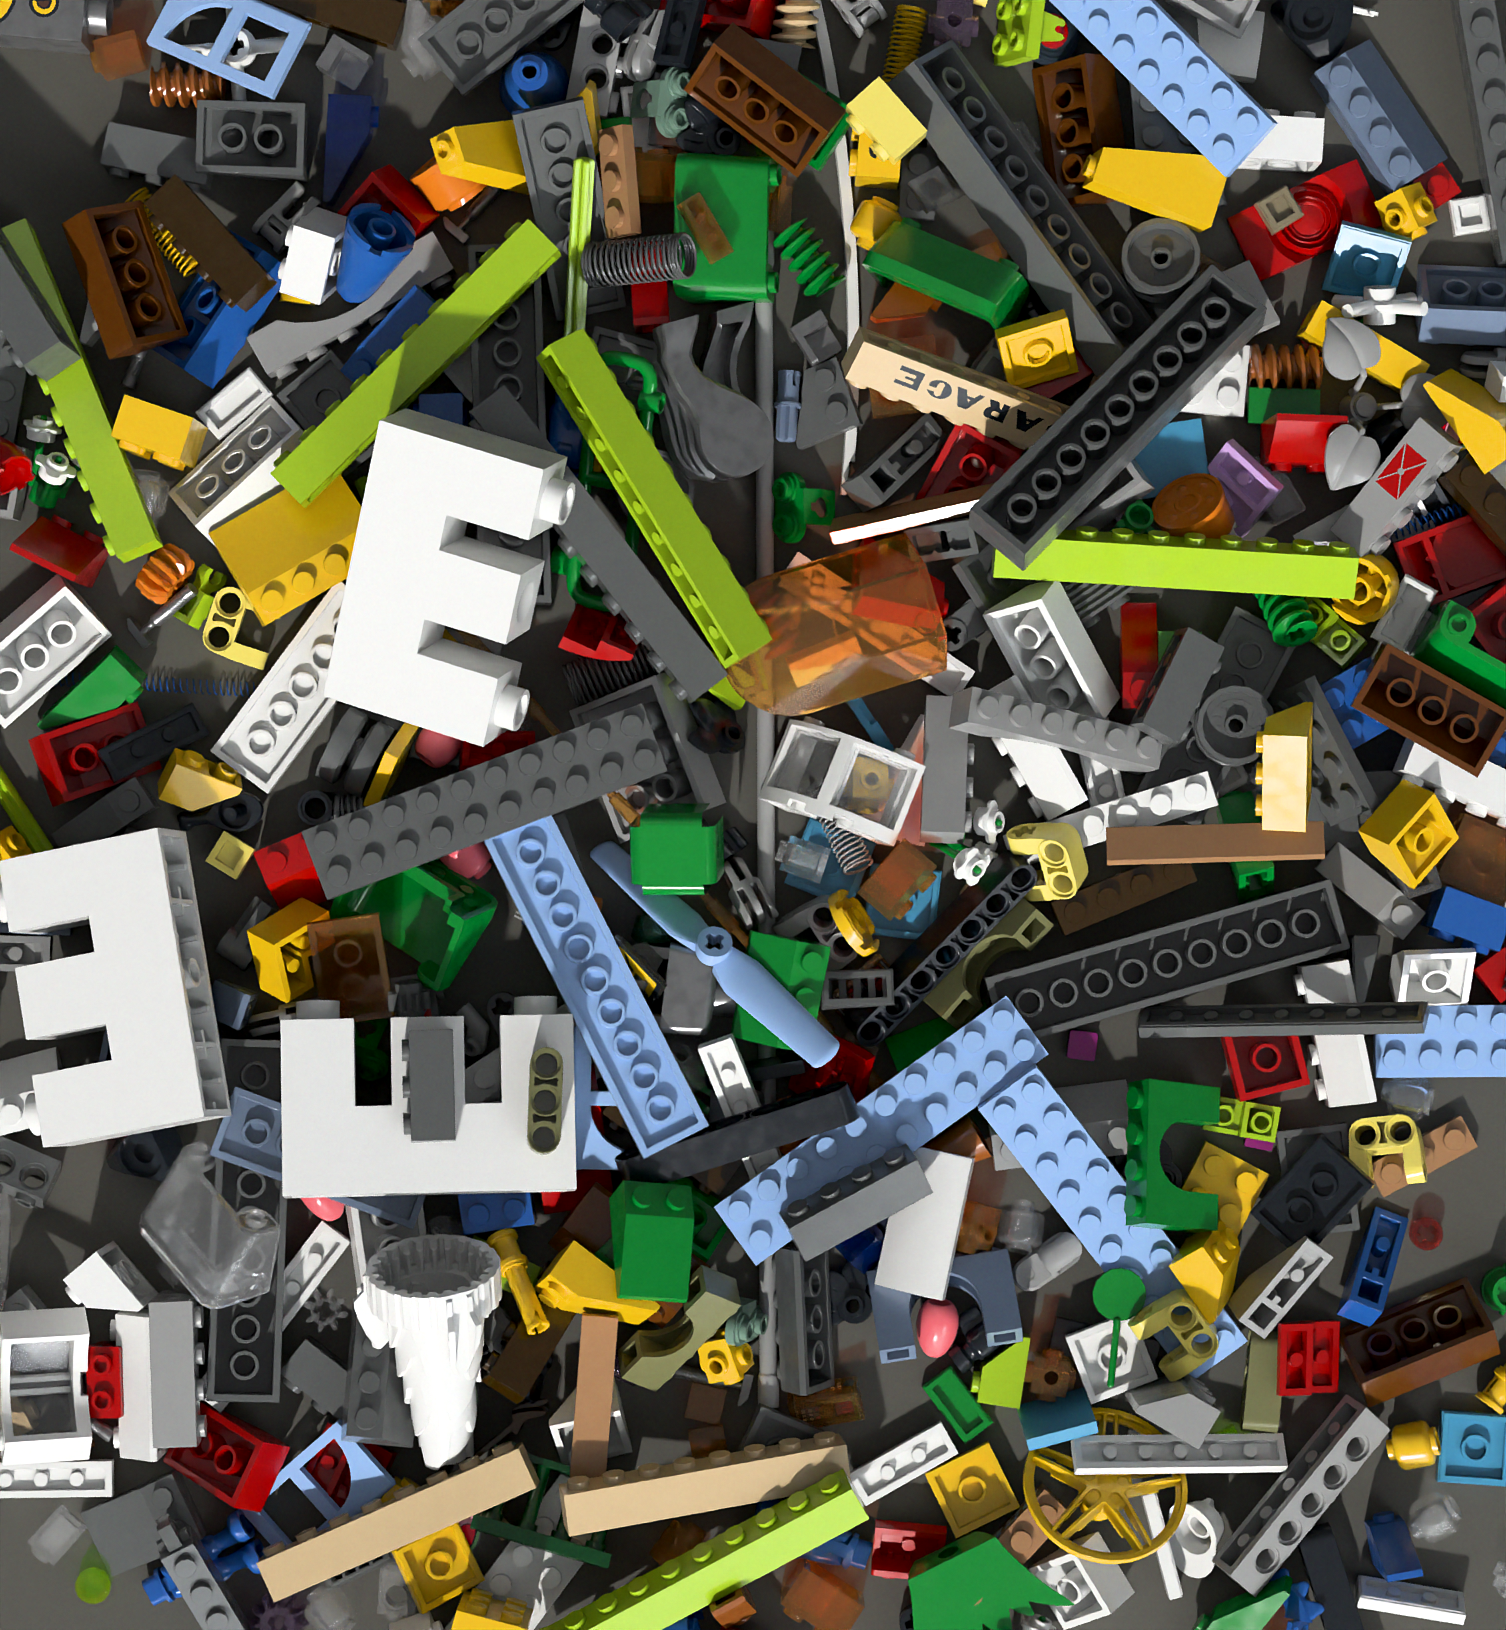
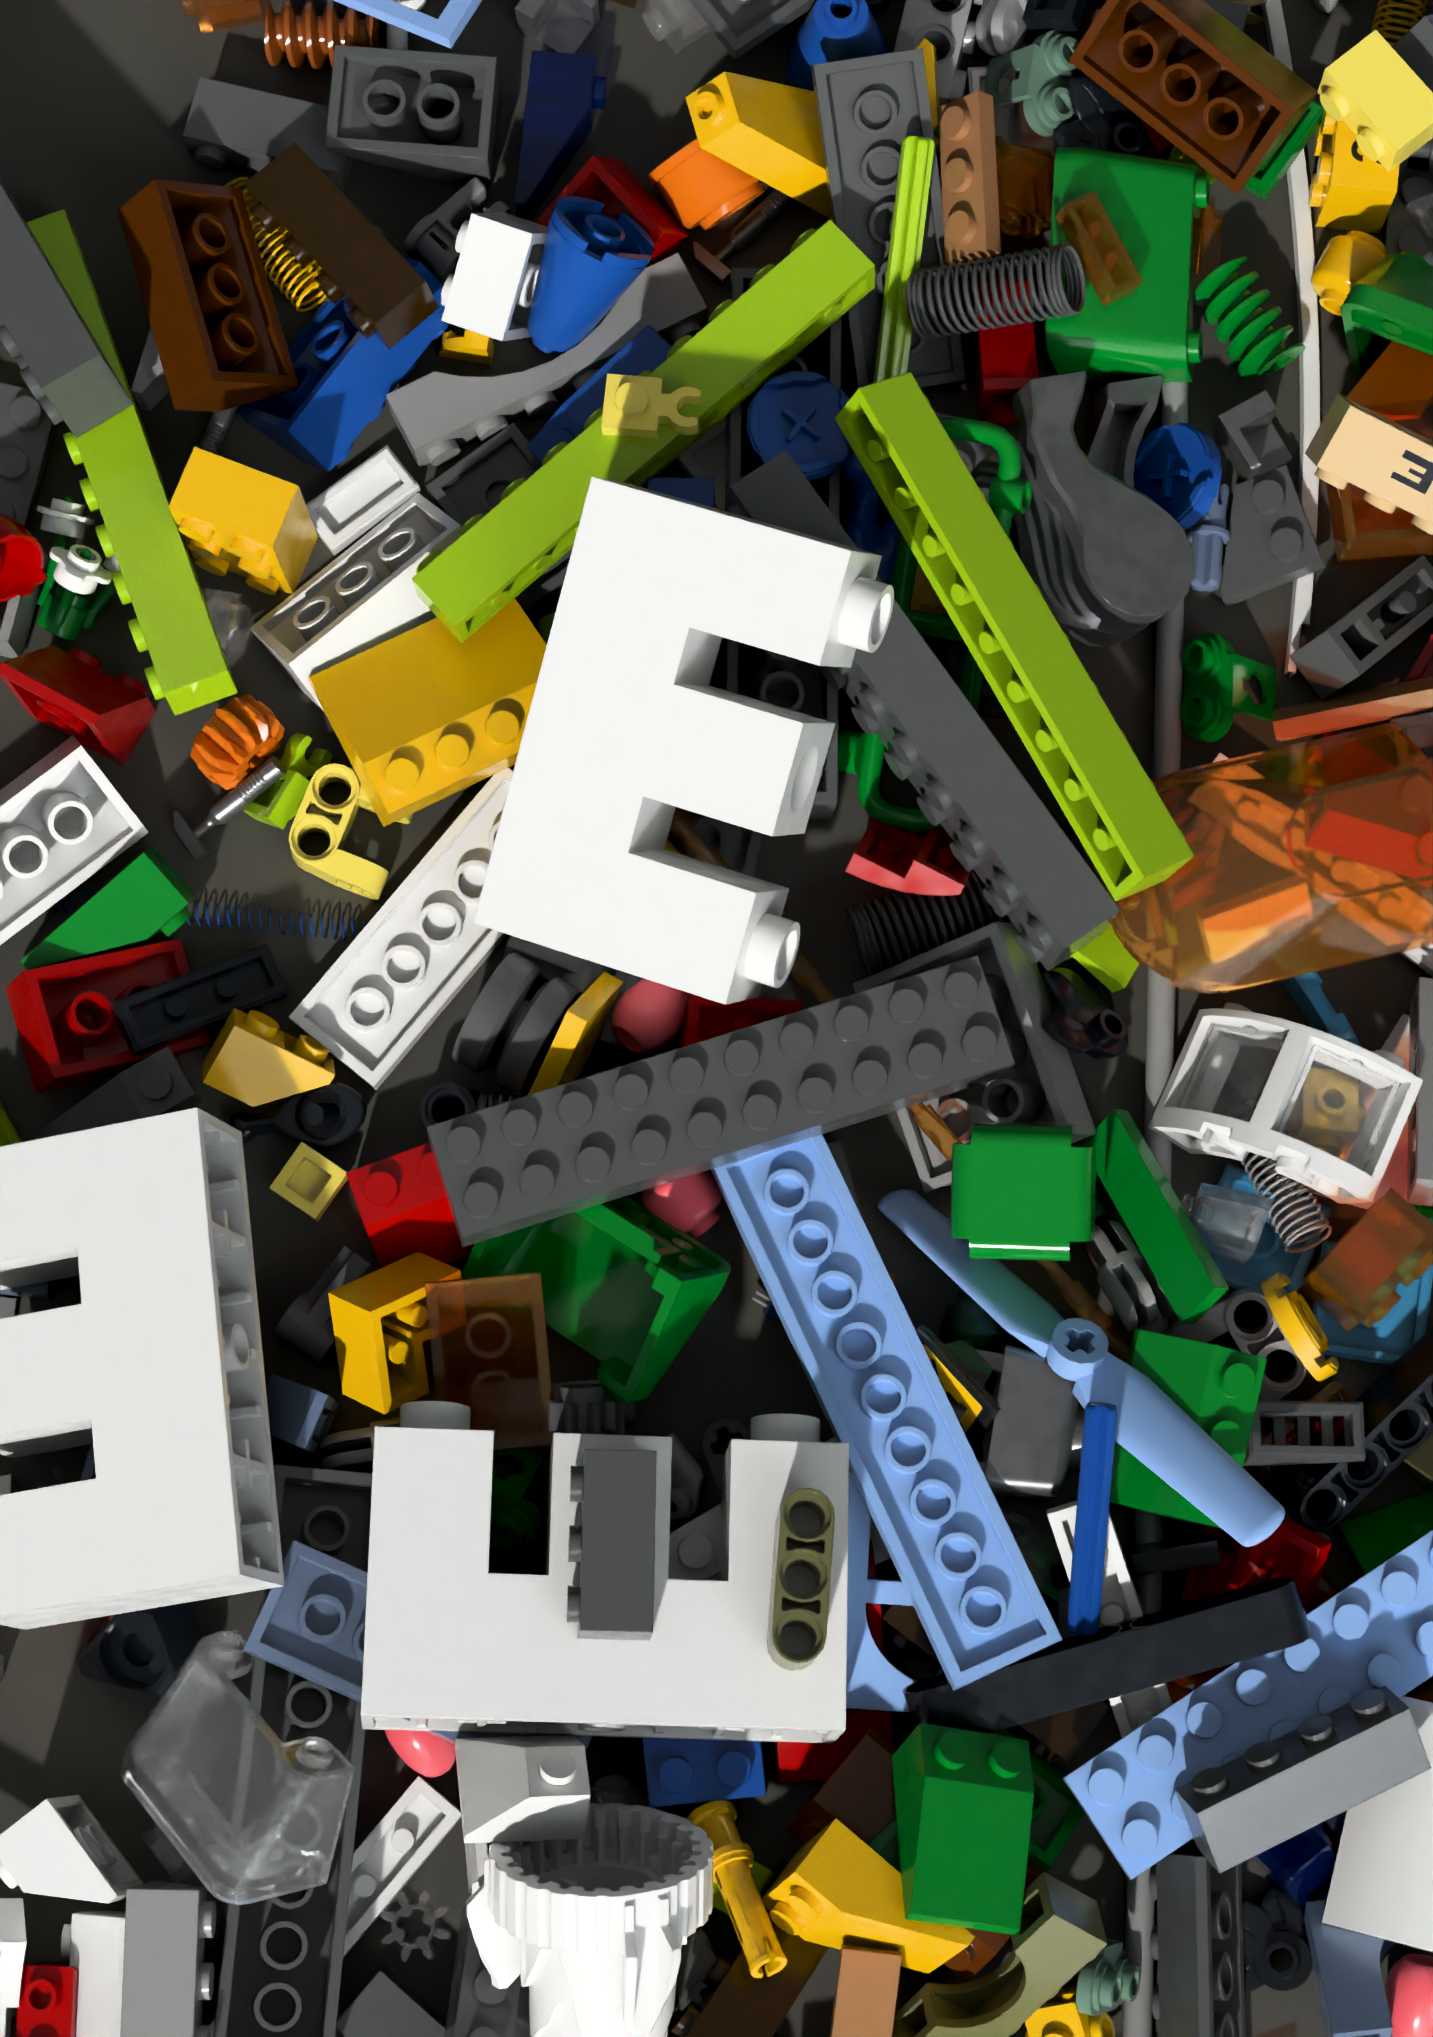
camera: 10 degrees right, 10 degrees down
(383, 1230) = (522, 1788): none -> white slope
(408, 353) = (638, 406): none -> light yellow plate
(512, 350) = (798, 416): none -> blue tile
(724, 1051) = (1091, 1518): none -> blue axle
(761, 856) = (1156, 1217): none -> green tile
(763, 369) = (1179, 471): none -> blue tile

